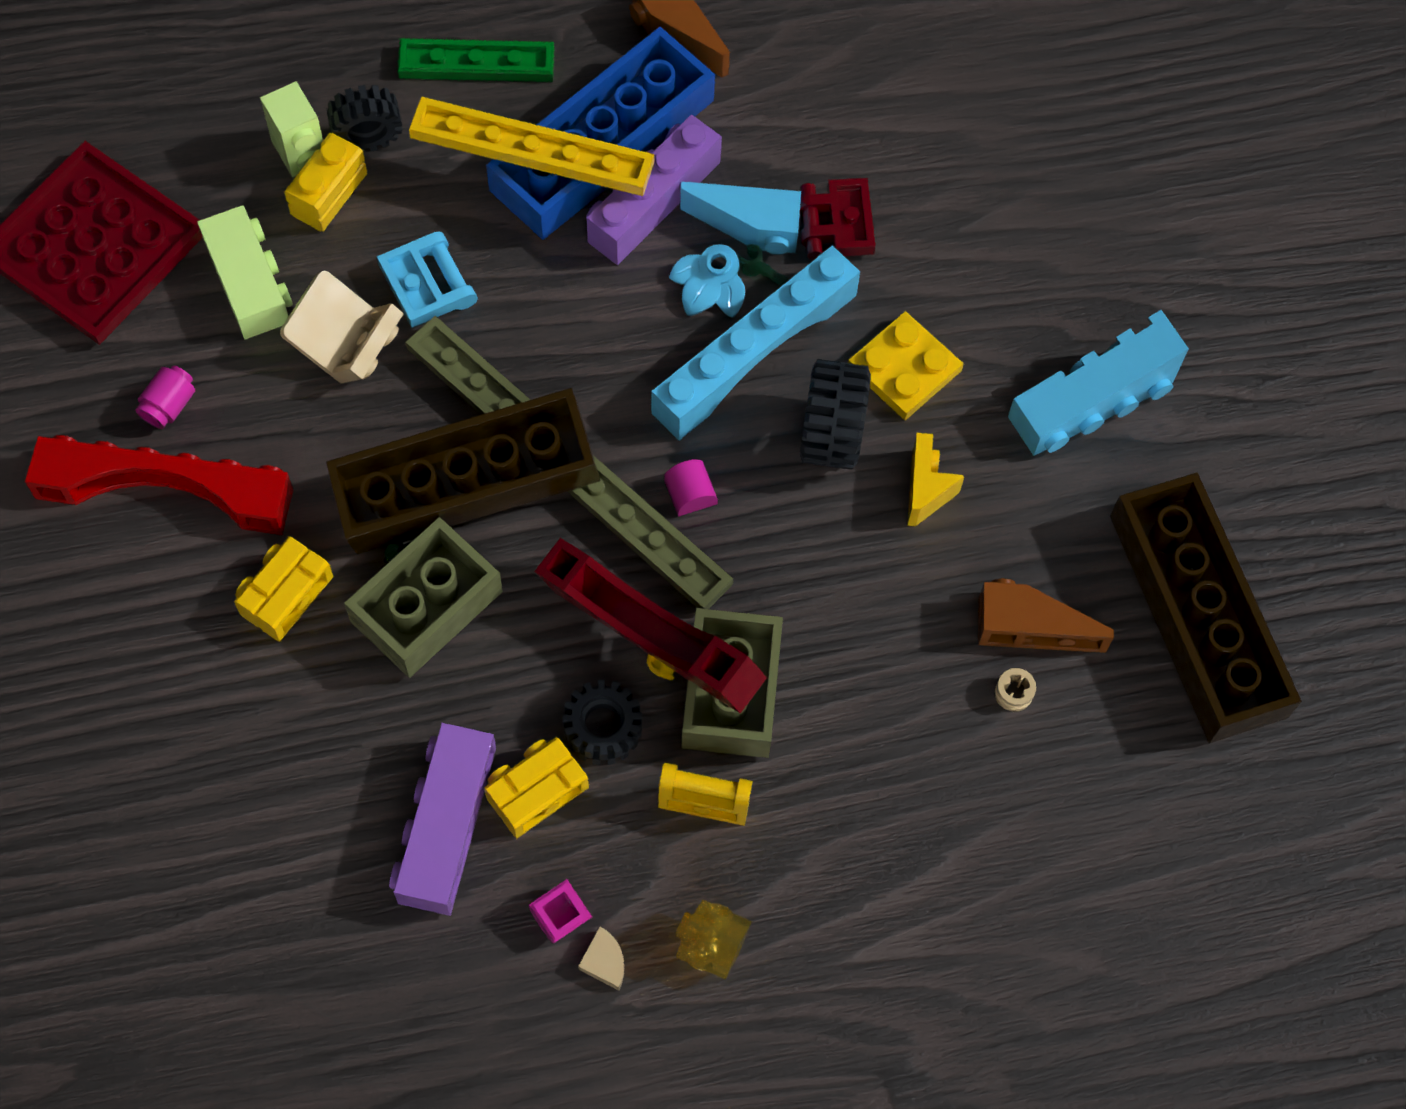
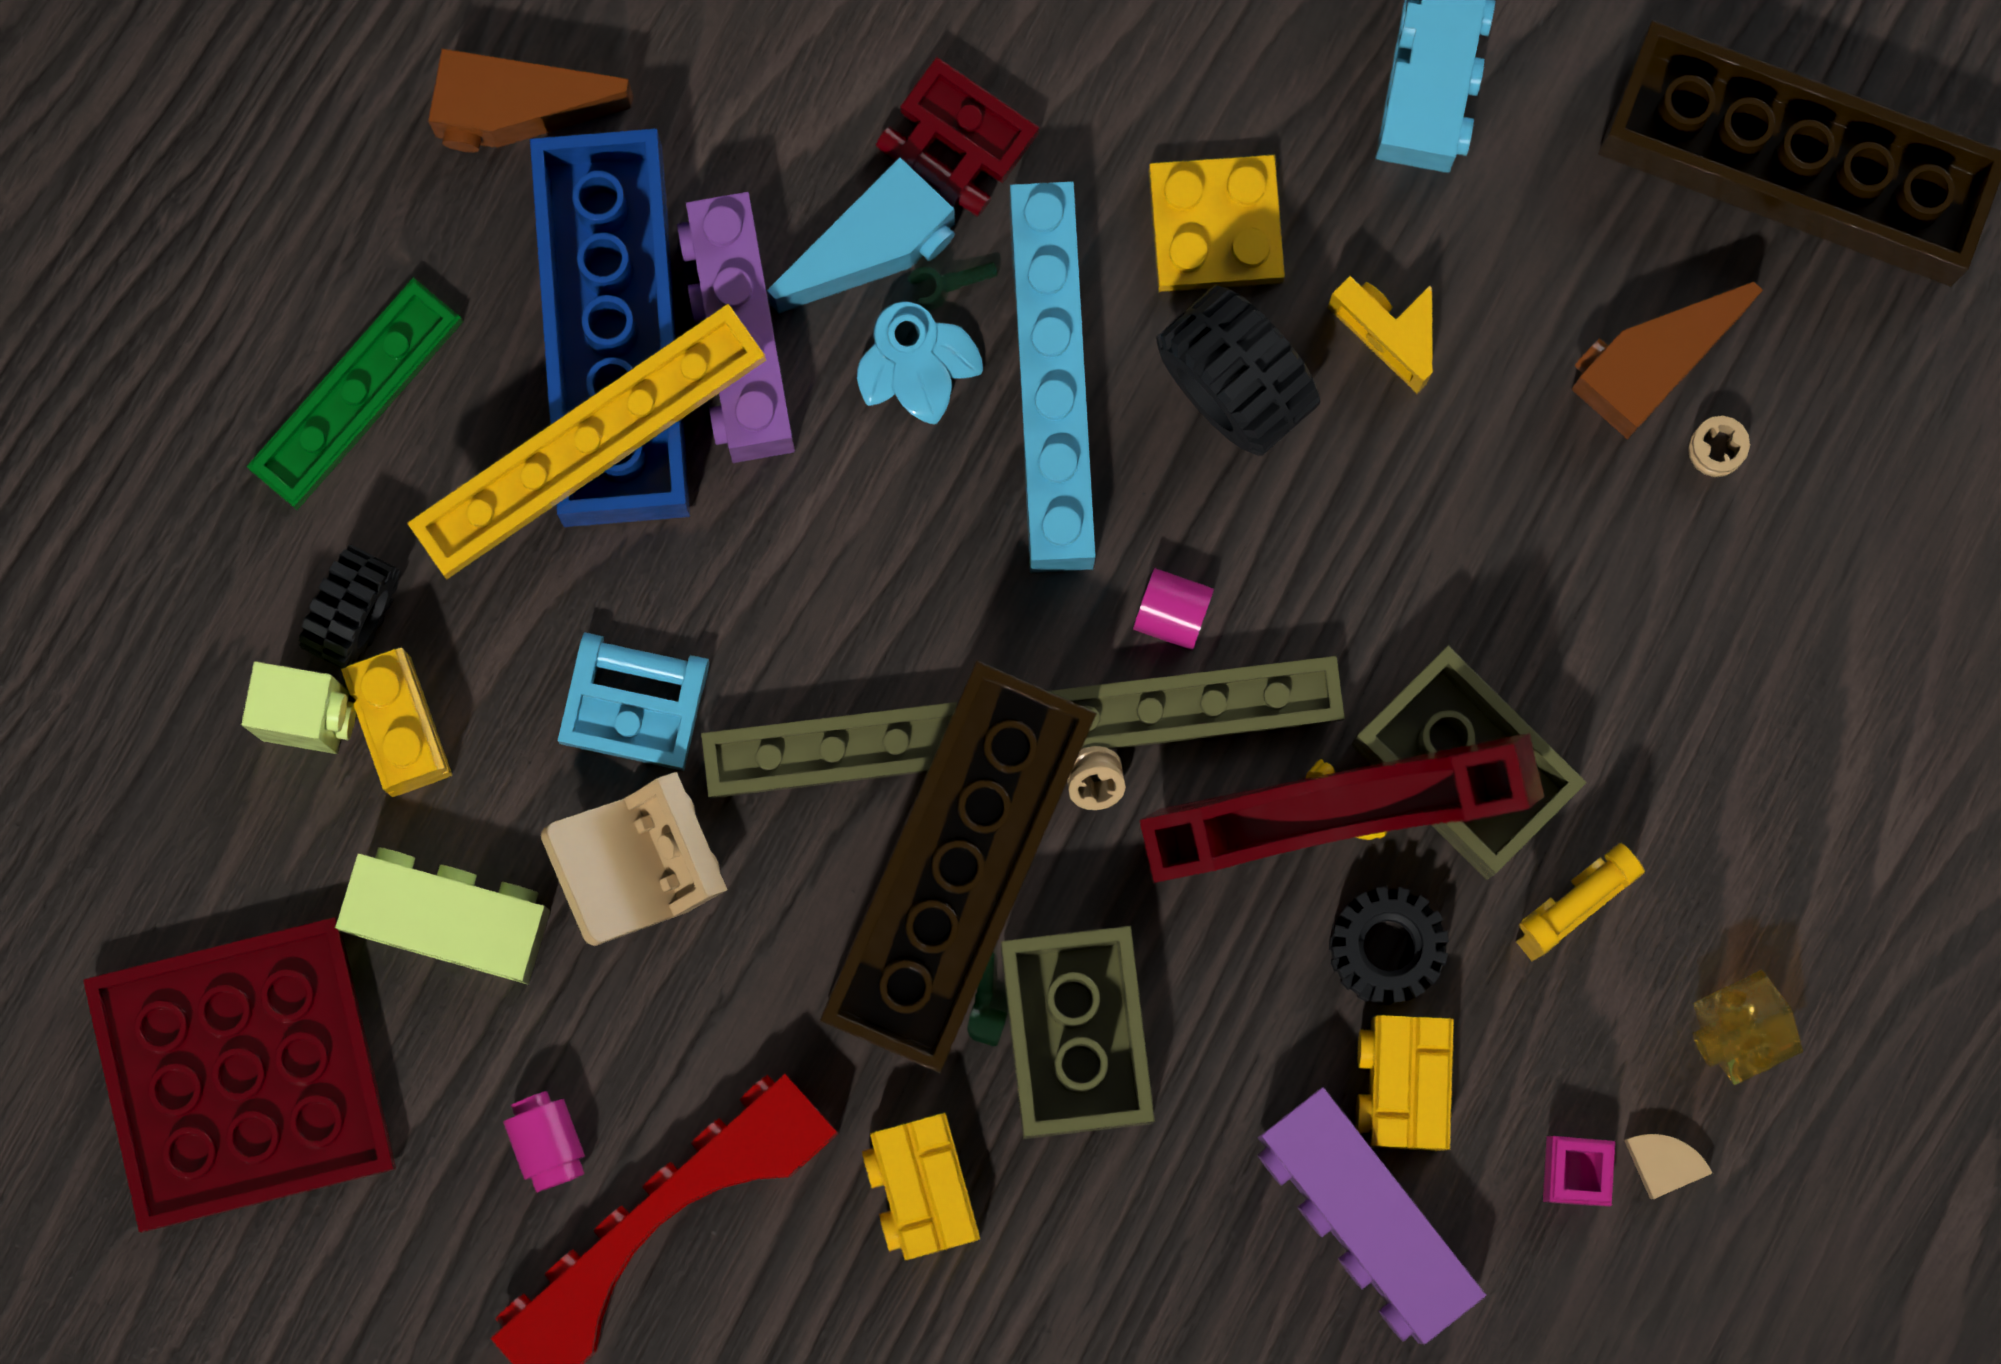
camera: 50 degrees left, 15 degrees up
(577, 507) = (1097, 794): none -> tan bush

